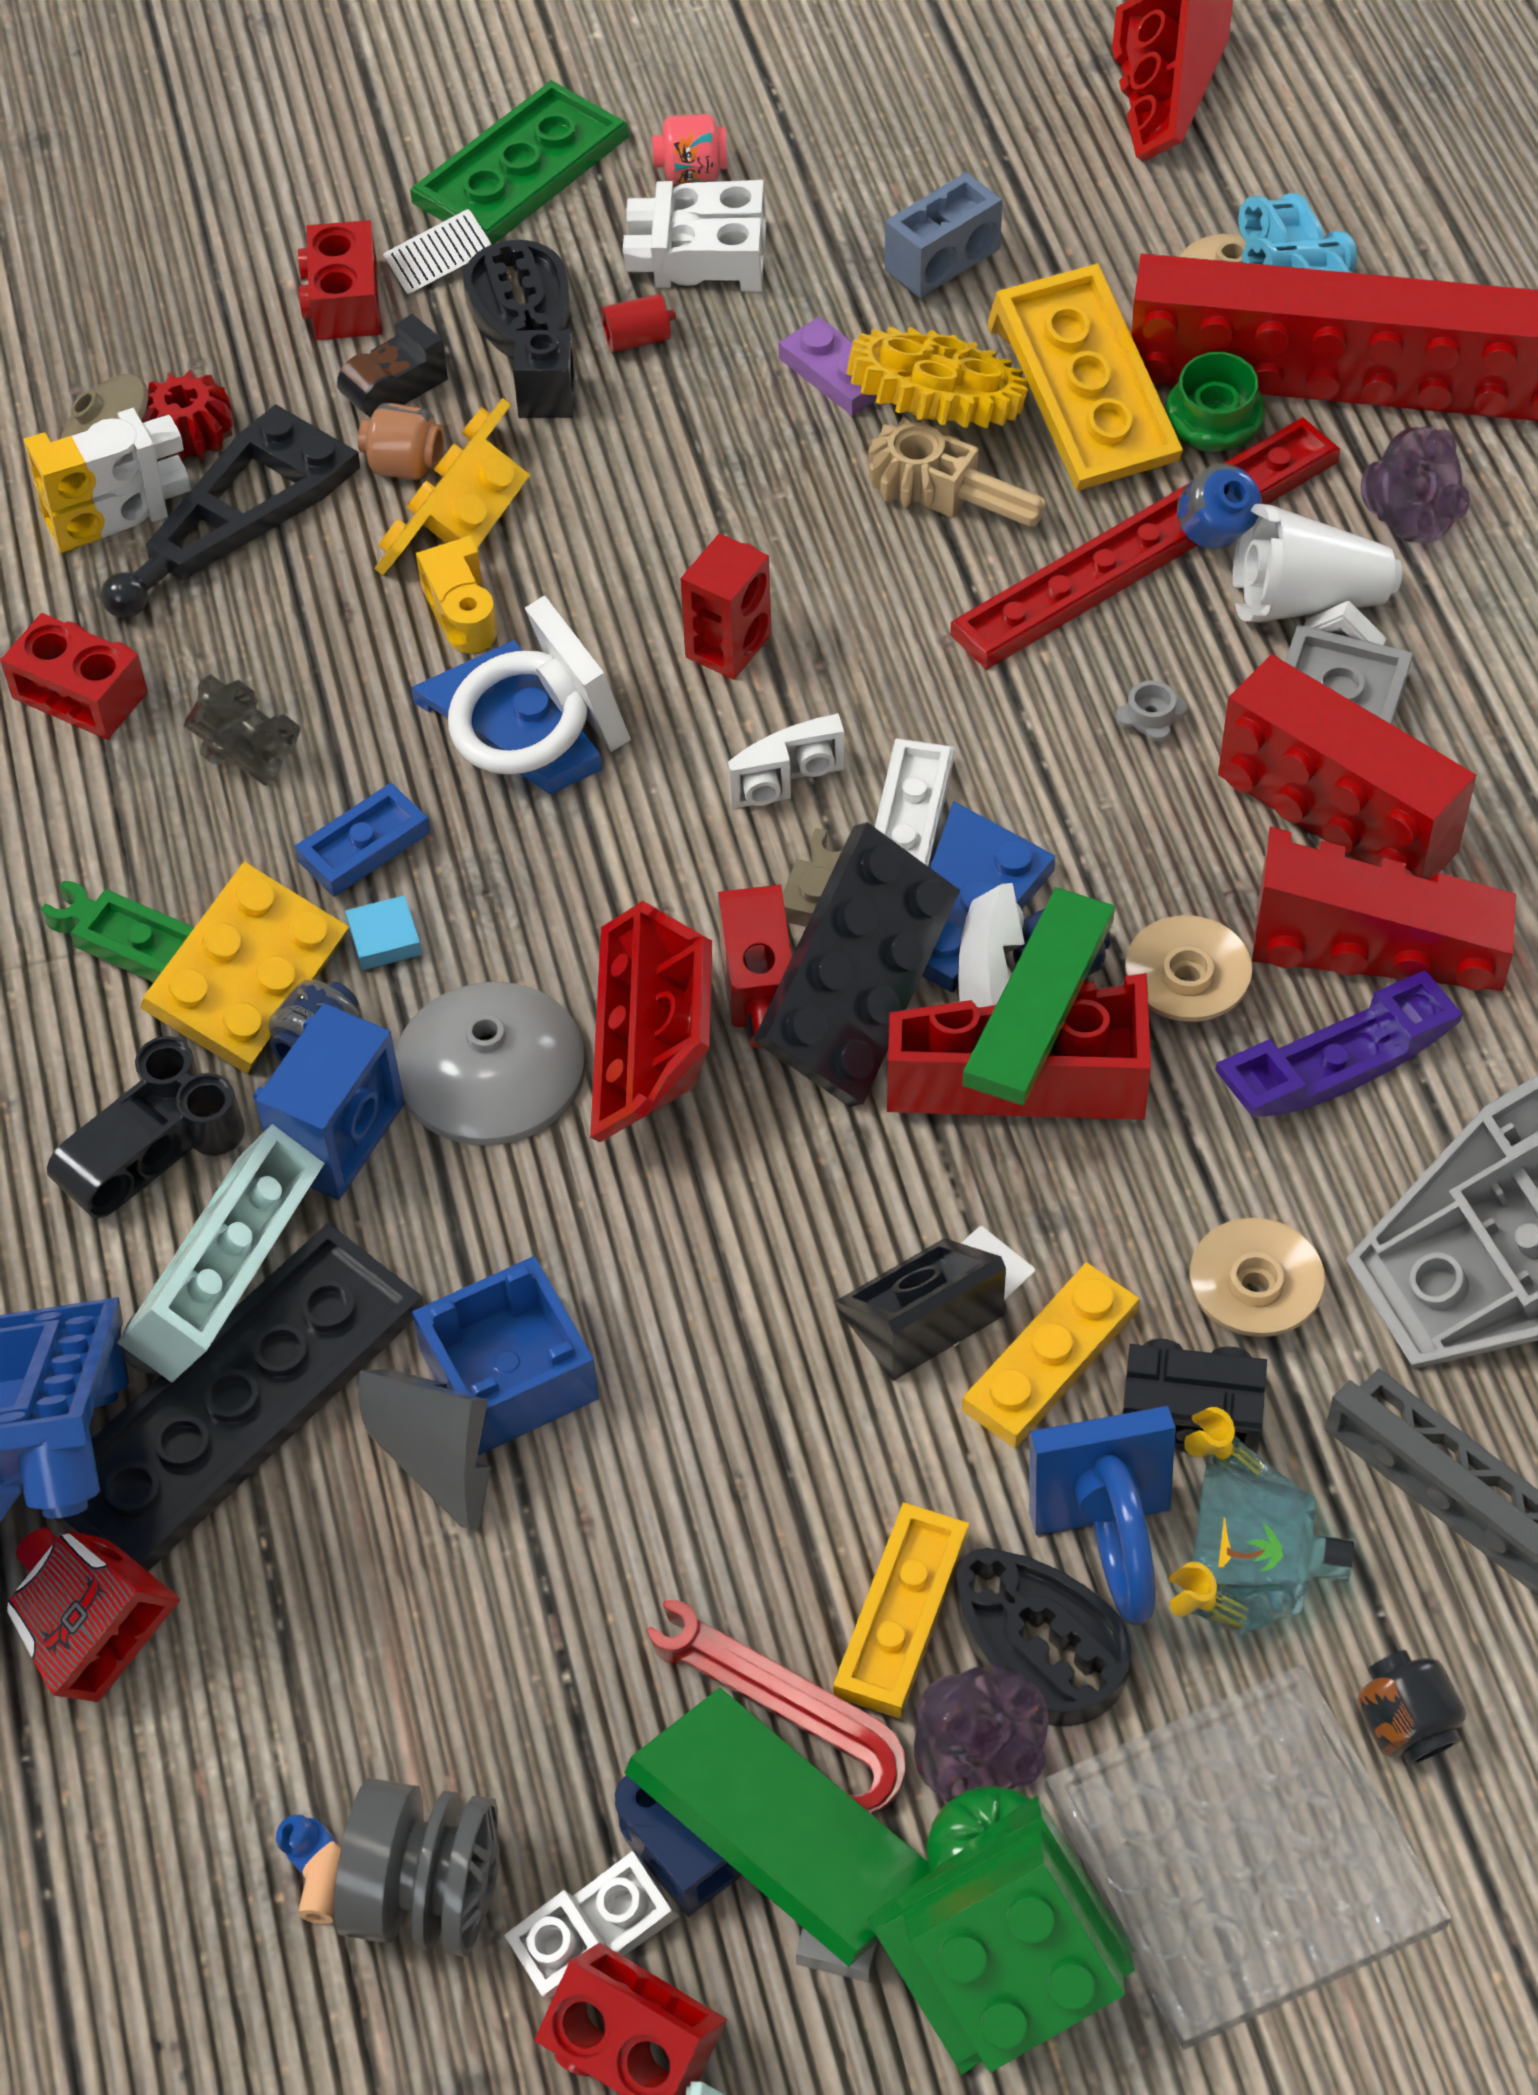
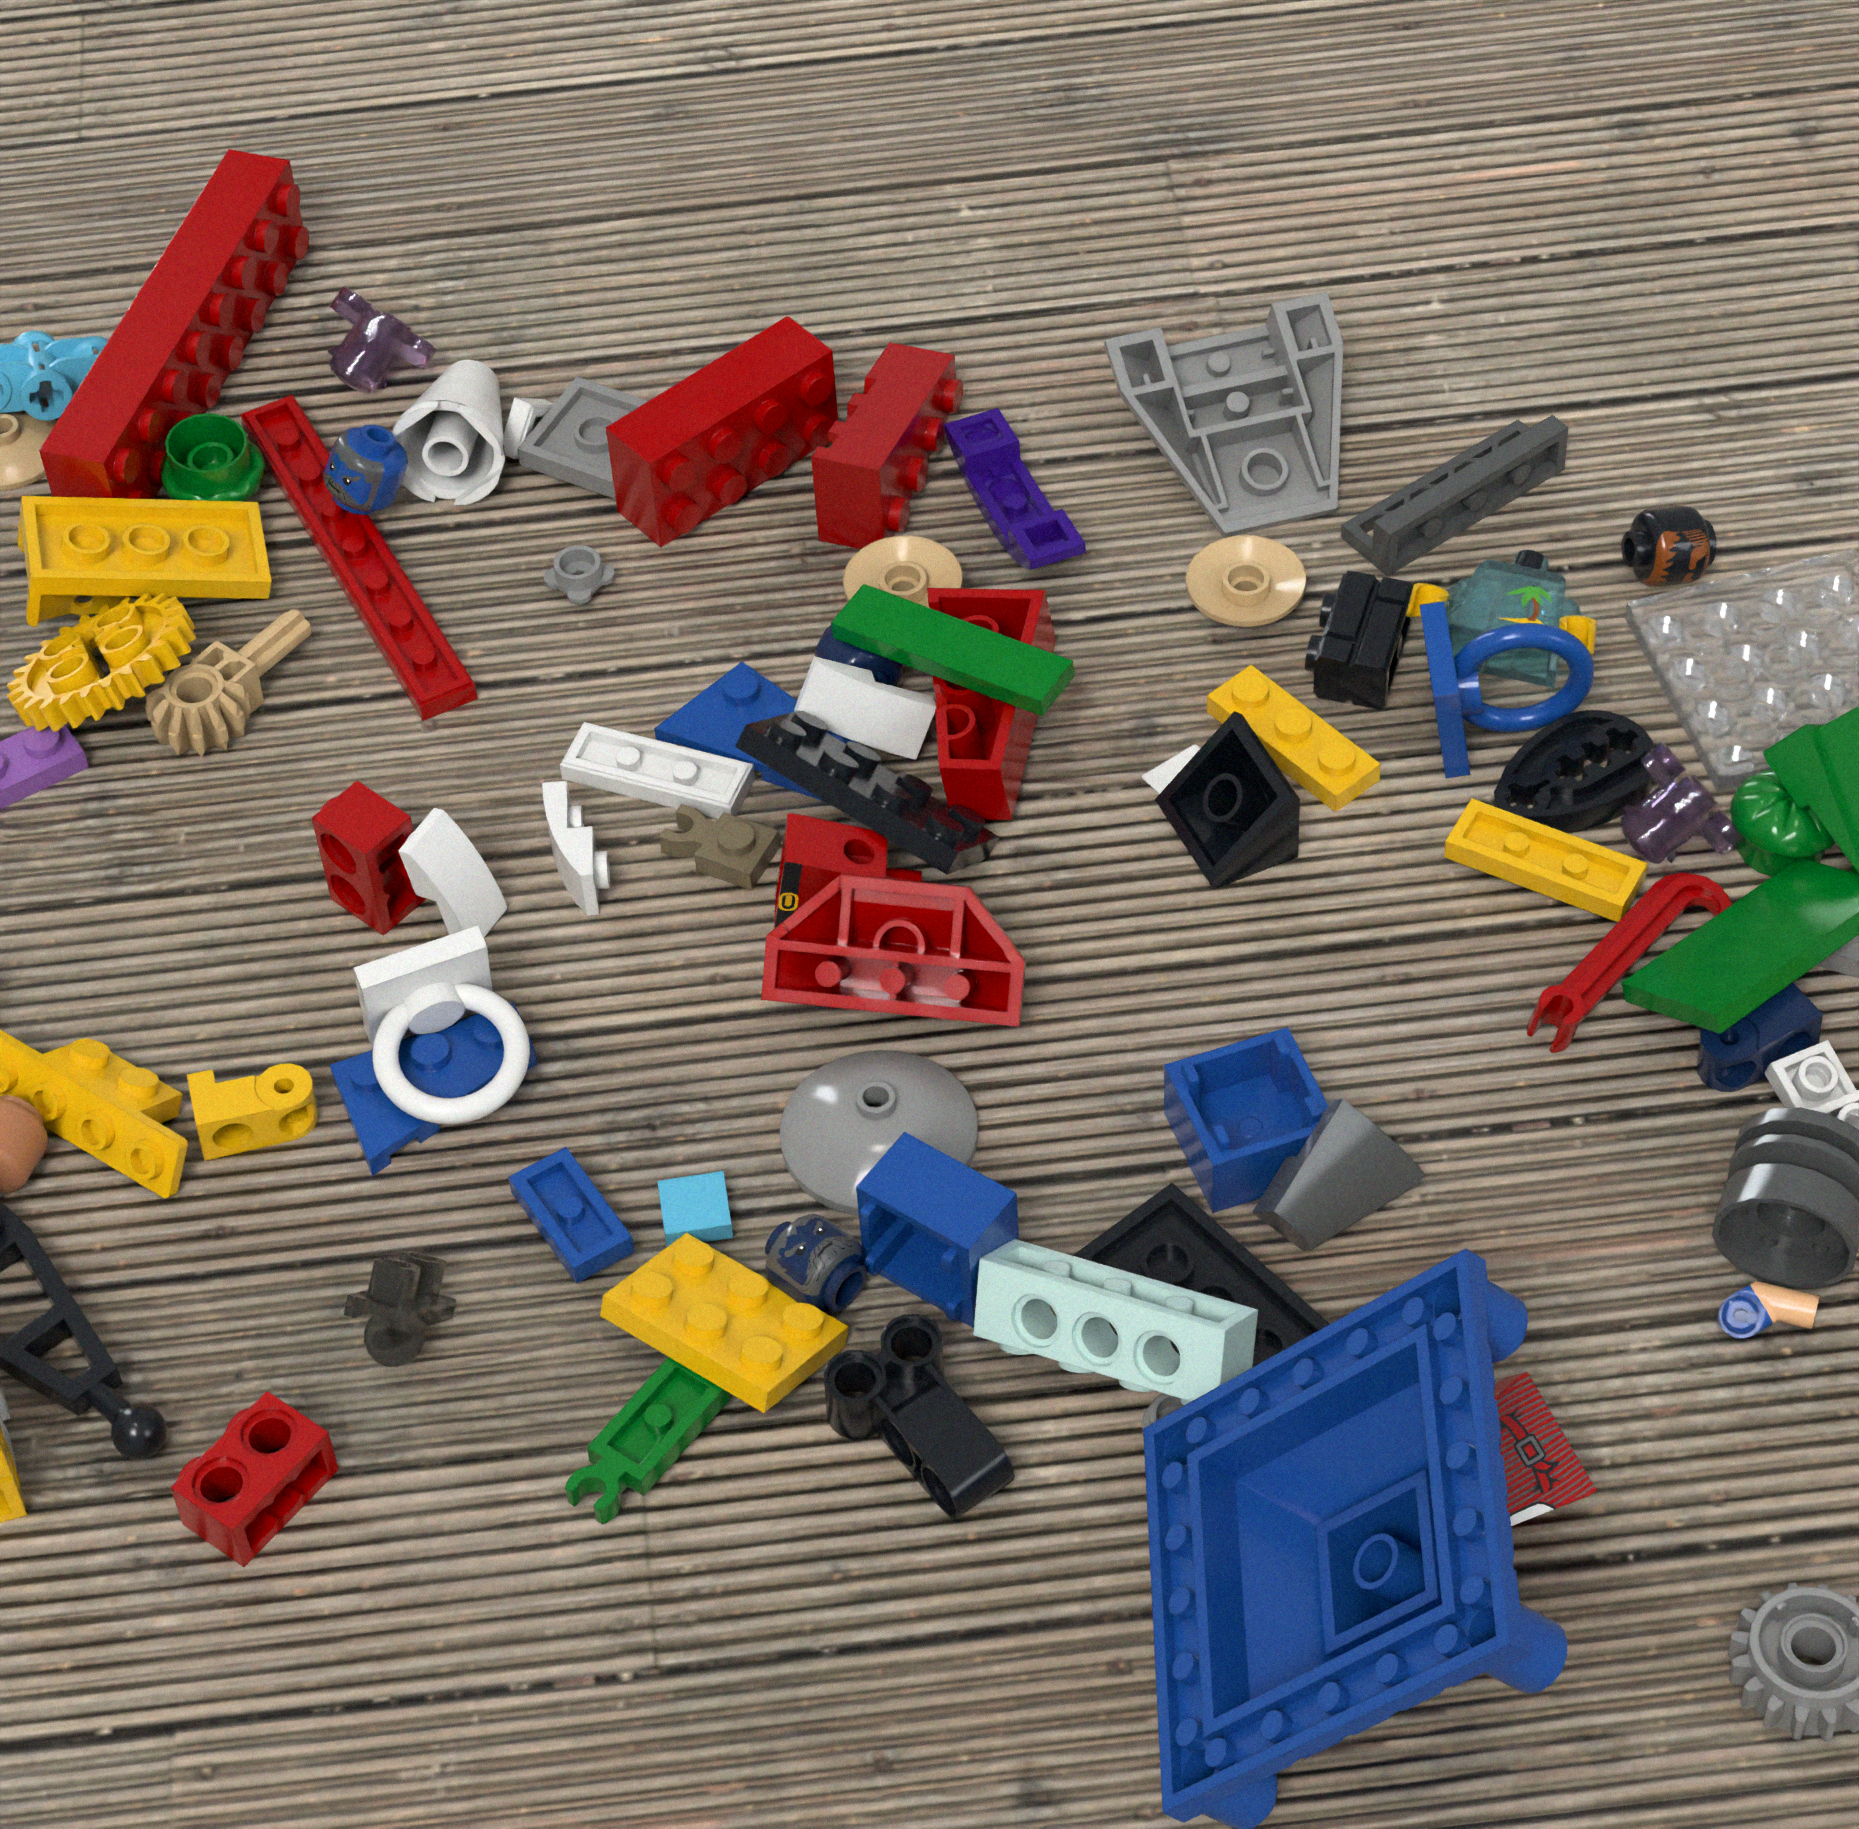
camera: 80 degrees left, 5 degrees down
(709, 670) = (452, 873): none -> white slope

